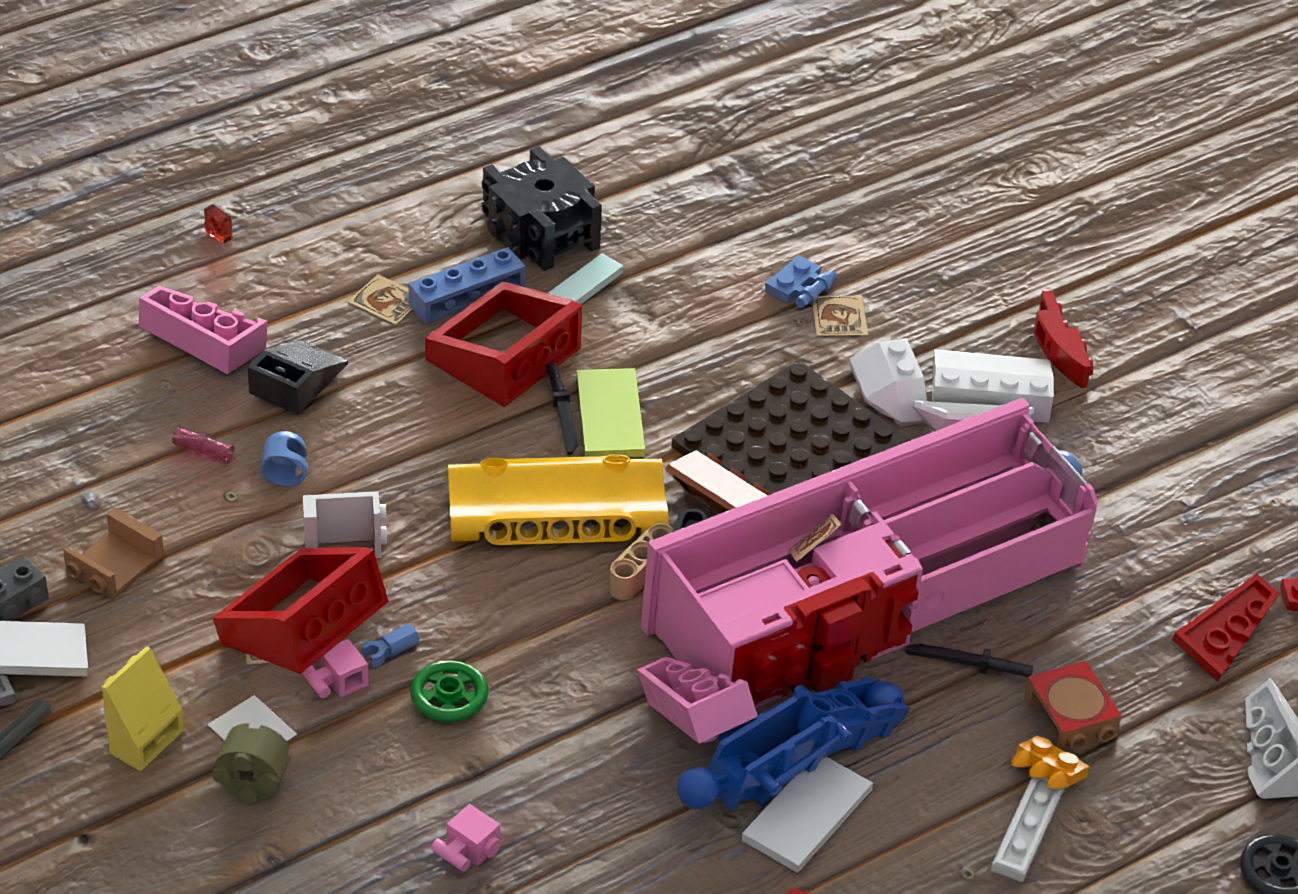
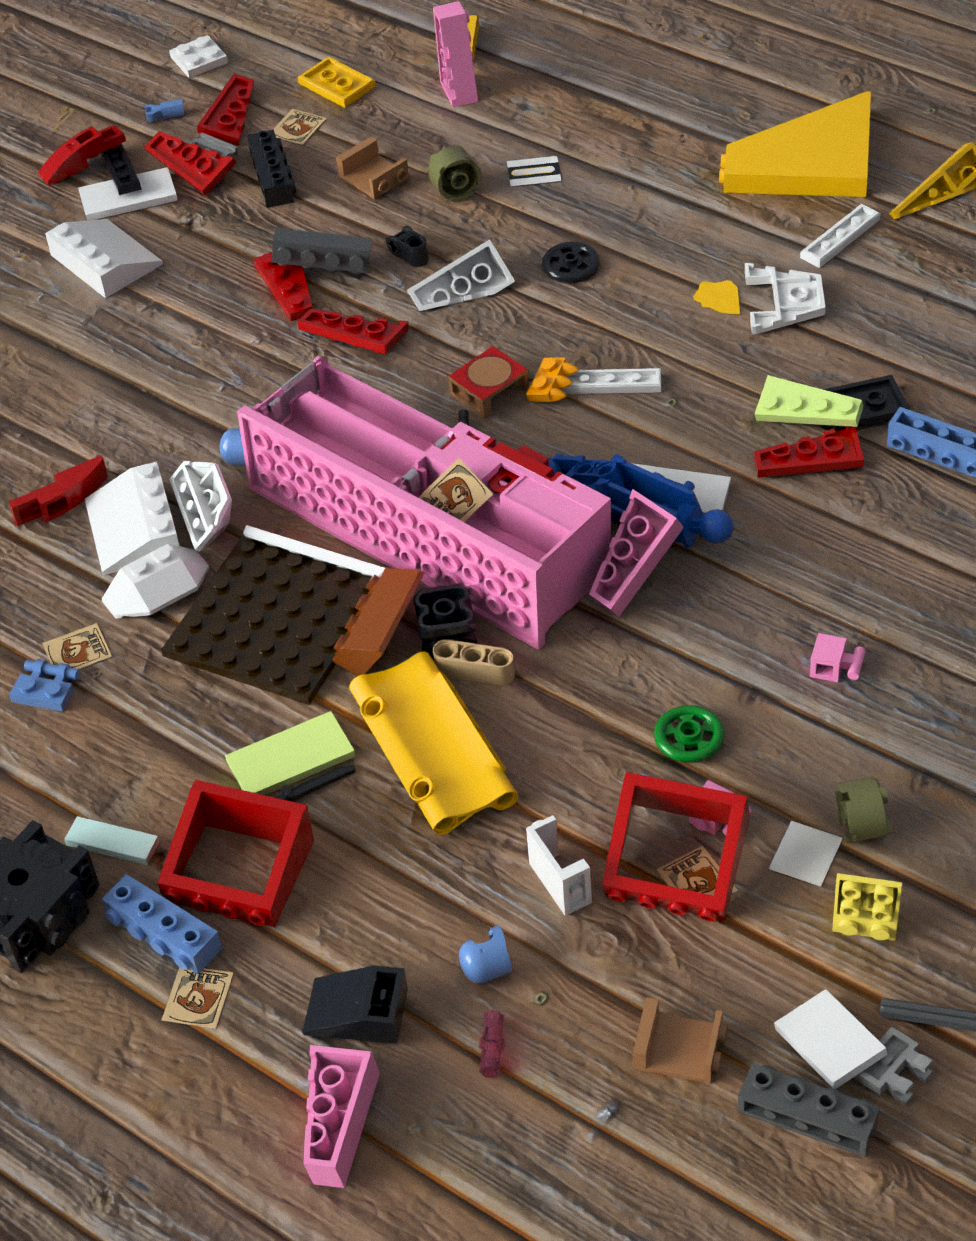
camera: 105 degrees left, 5 degrees up
(218, 223) = (149, 1188): clear red plate -> none

